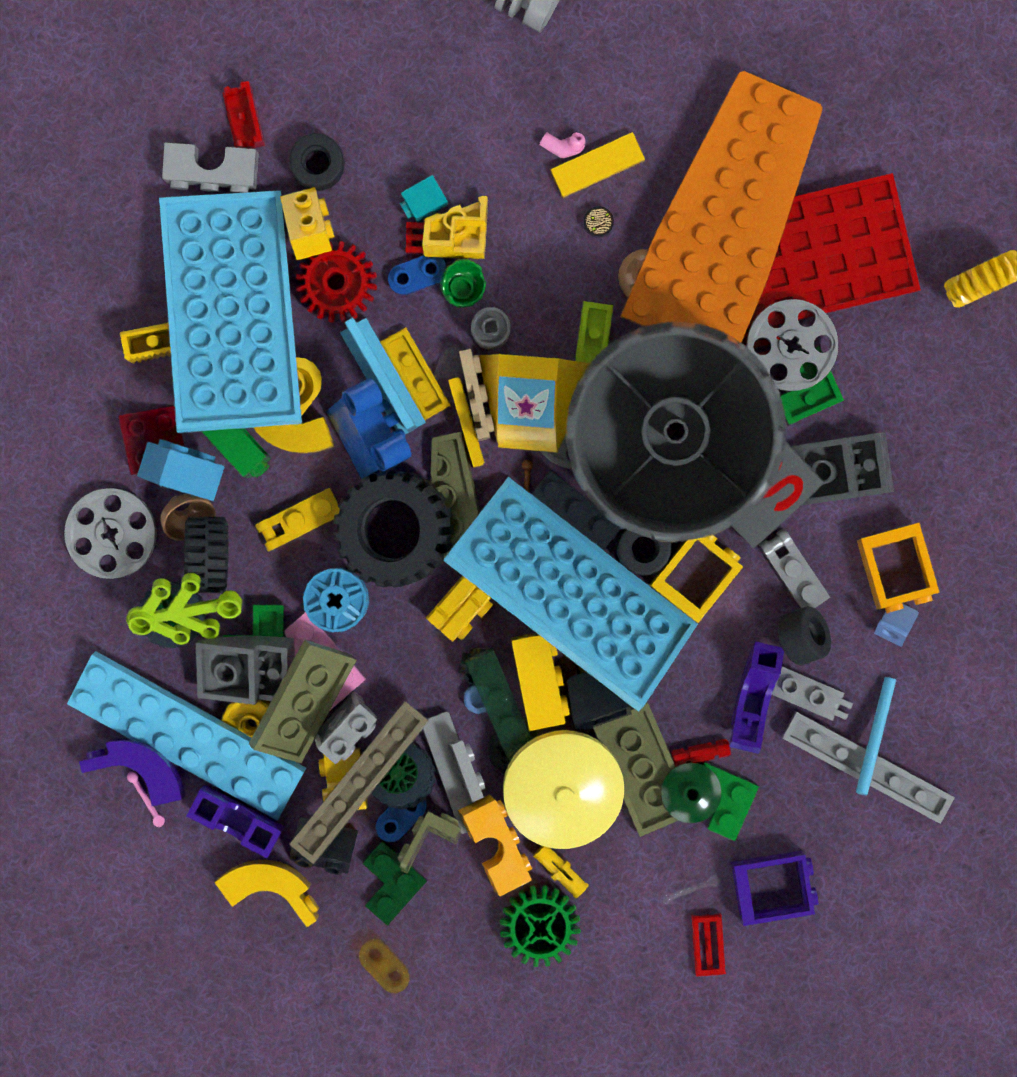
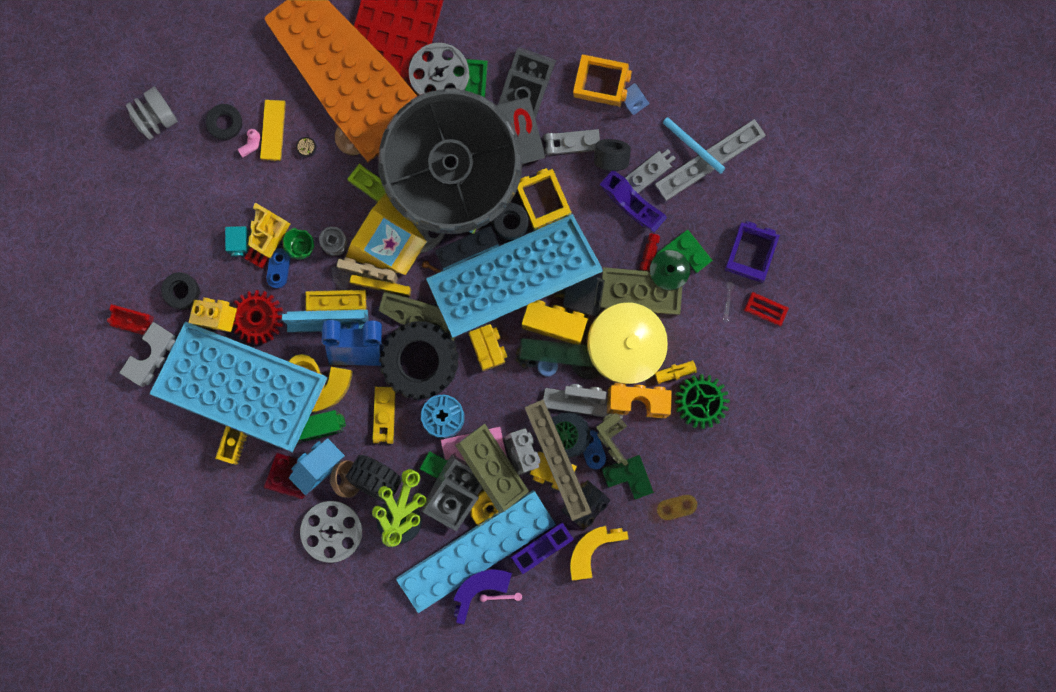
camera: 65 degrees left, 5 degrees down
(577, 75) = (224, 109): none -> black tyre

